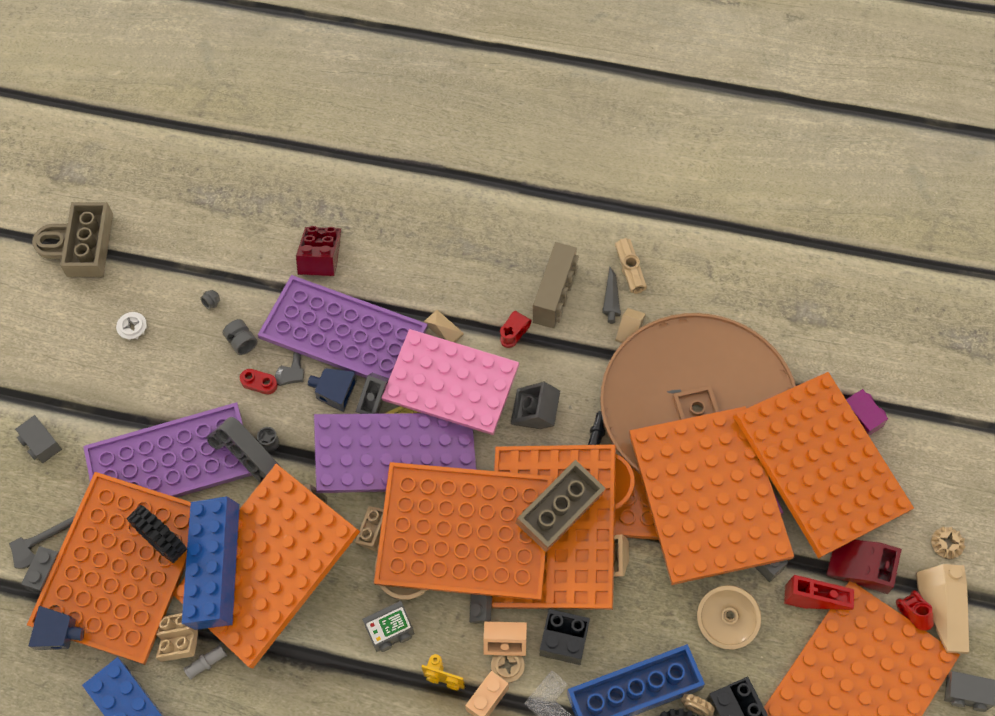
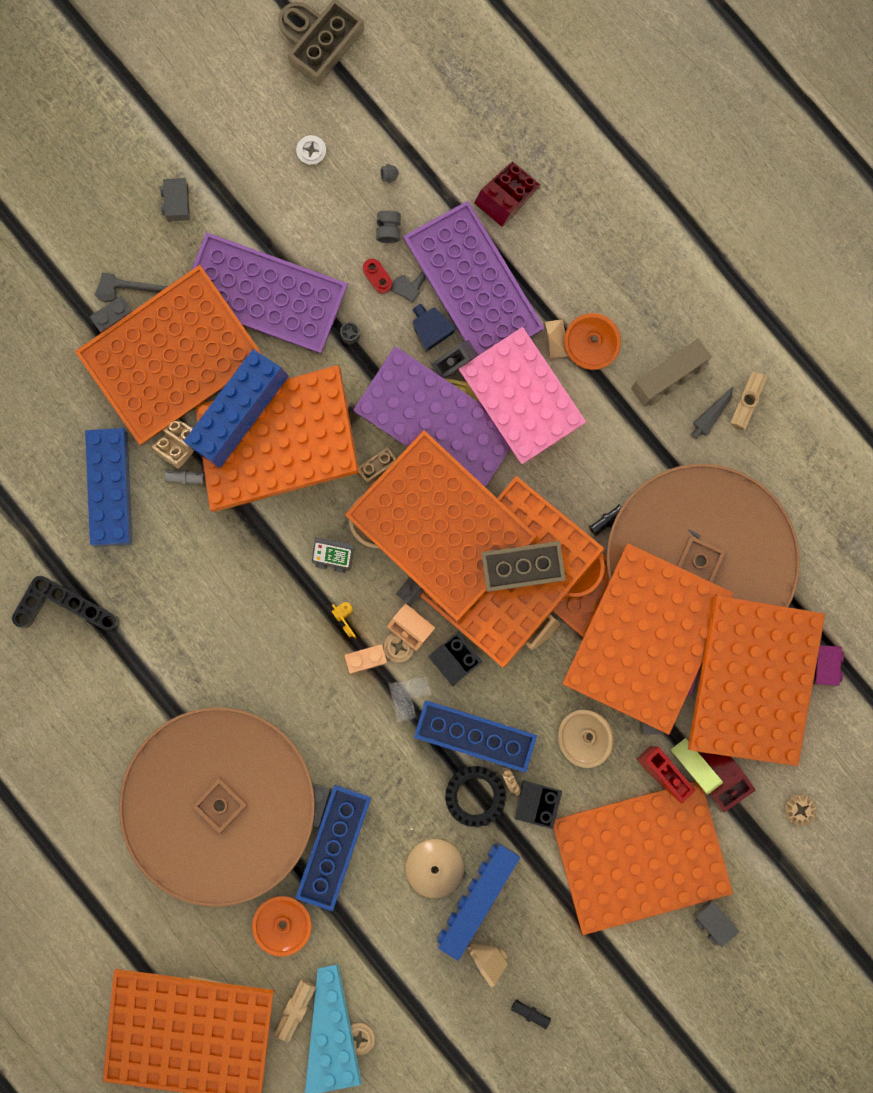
camera: 30 degrees right, 20 degrees up
(54, 630) = (91, 372): dark blue torso -> none
(156, 533) = (210, 357): black tyre -> none
(243, 447) = (325, 330): dark grey beam -> none
(488, 305) = (591, 353): none -> orange dish
(514, 329) = (613, 383): red piece -> none
(536, 406) = (575, 463): dark grey slope -> none
(630, 322) = (706, 451): tan slope -> none
(837, 569) = (696, 767): none -> yellowish green tile
(916, 610) = (728, 837): red piece -> none
(946, 592) = (757, 849): tan wedge -> none

